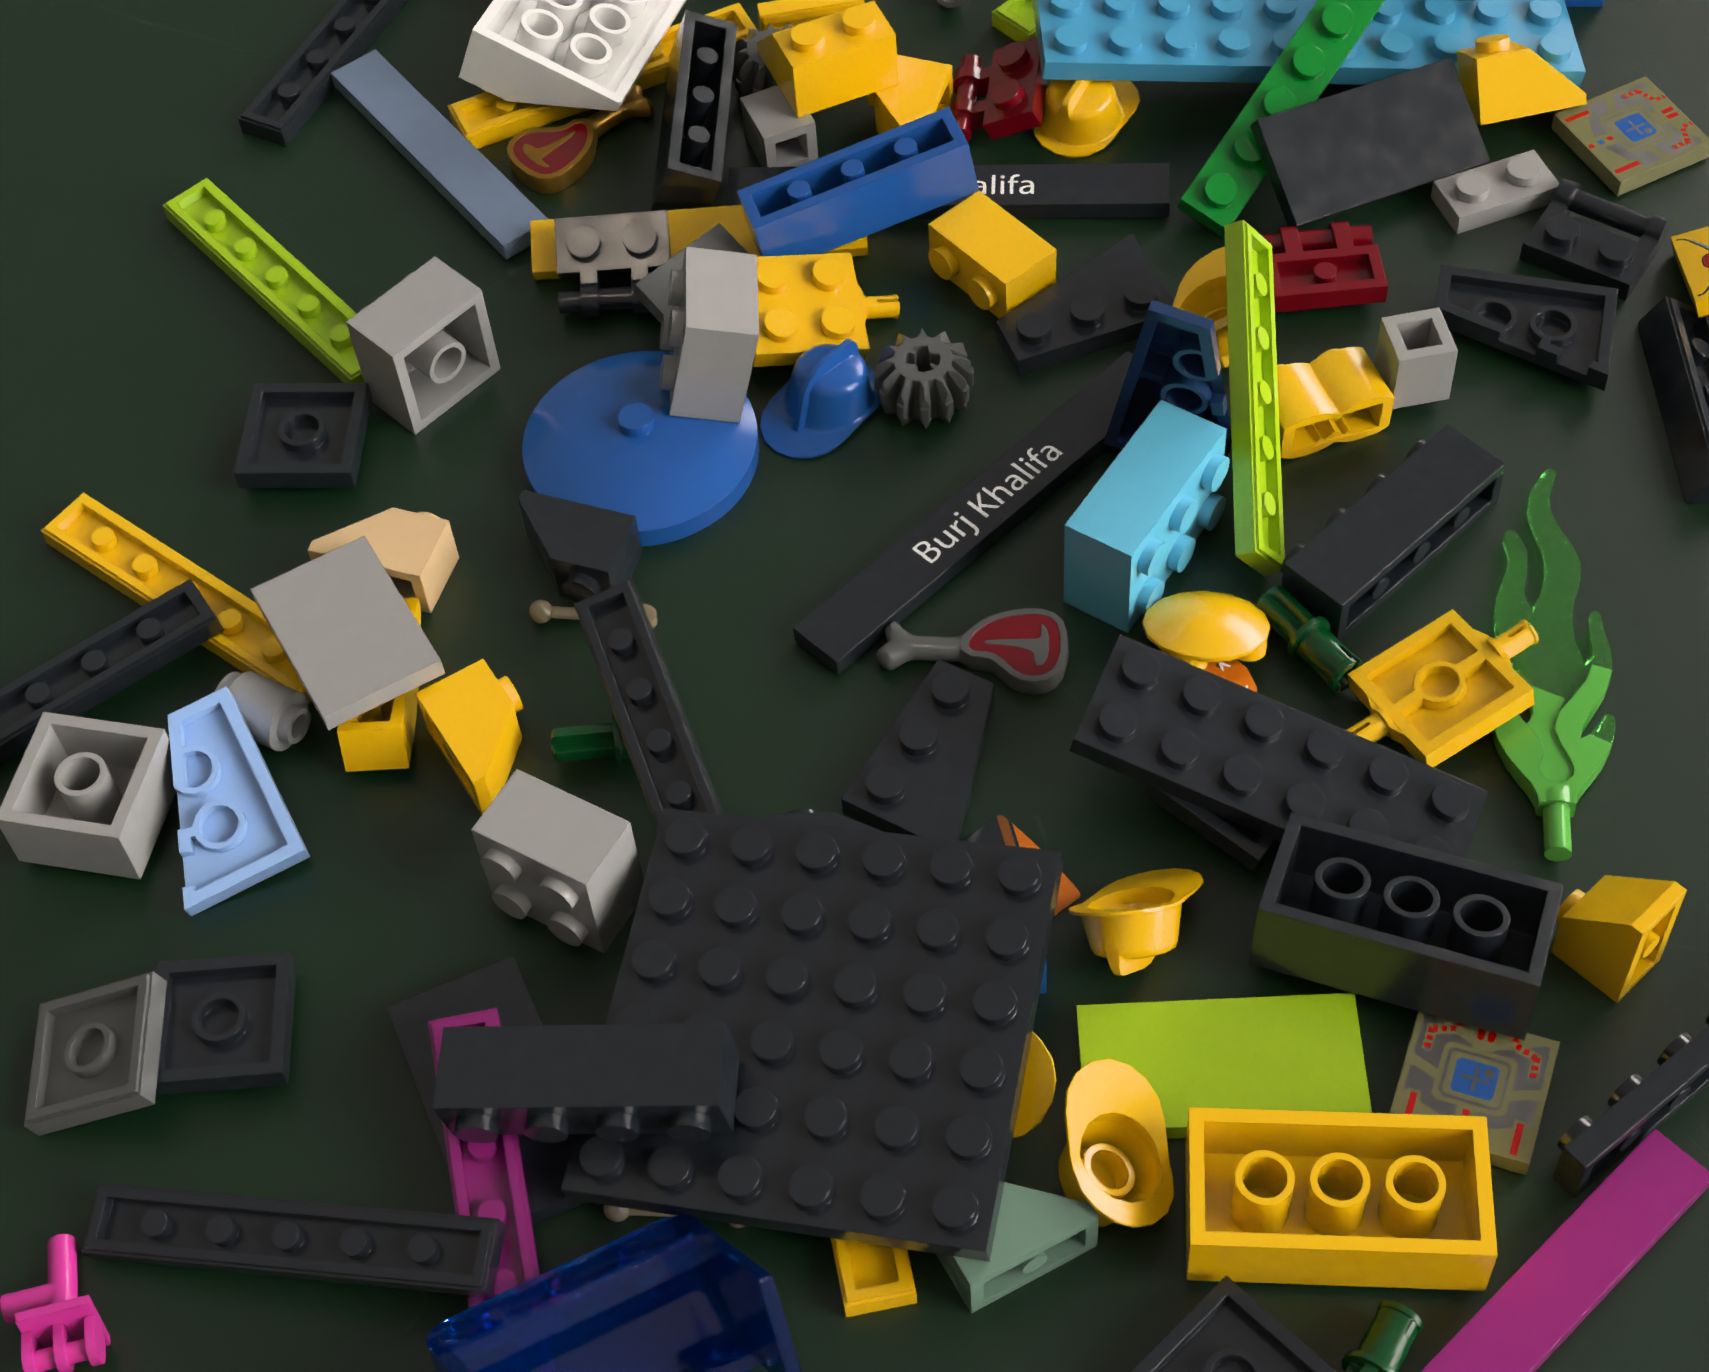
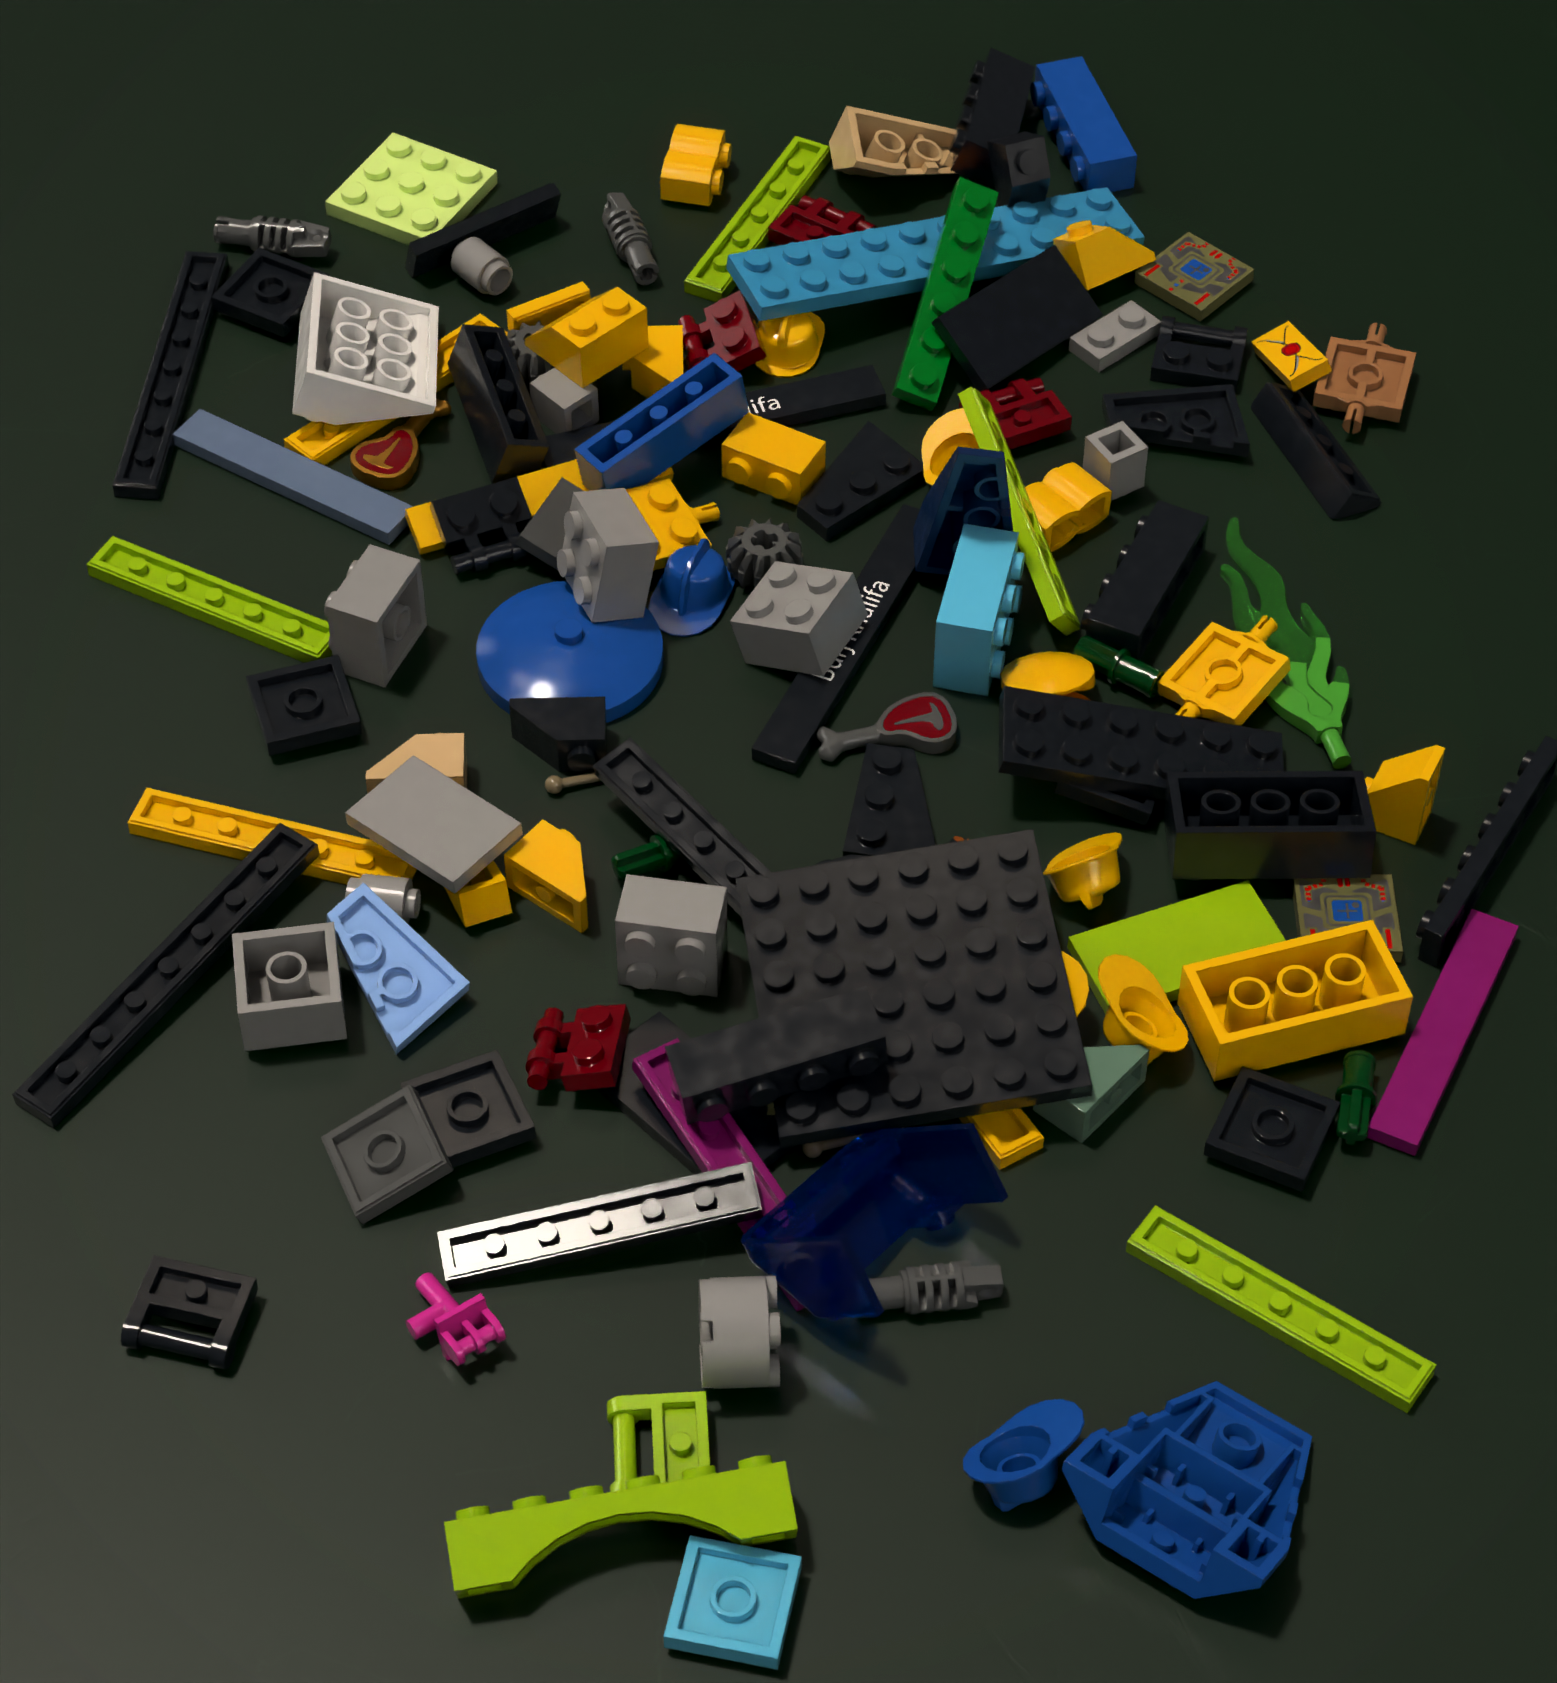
camera: 25 degrees left, 5 degrees down
(404, 988) = (592, 1043): none -> dark red plate
(920, 472) = (799, 618): none -> light grey brick

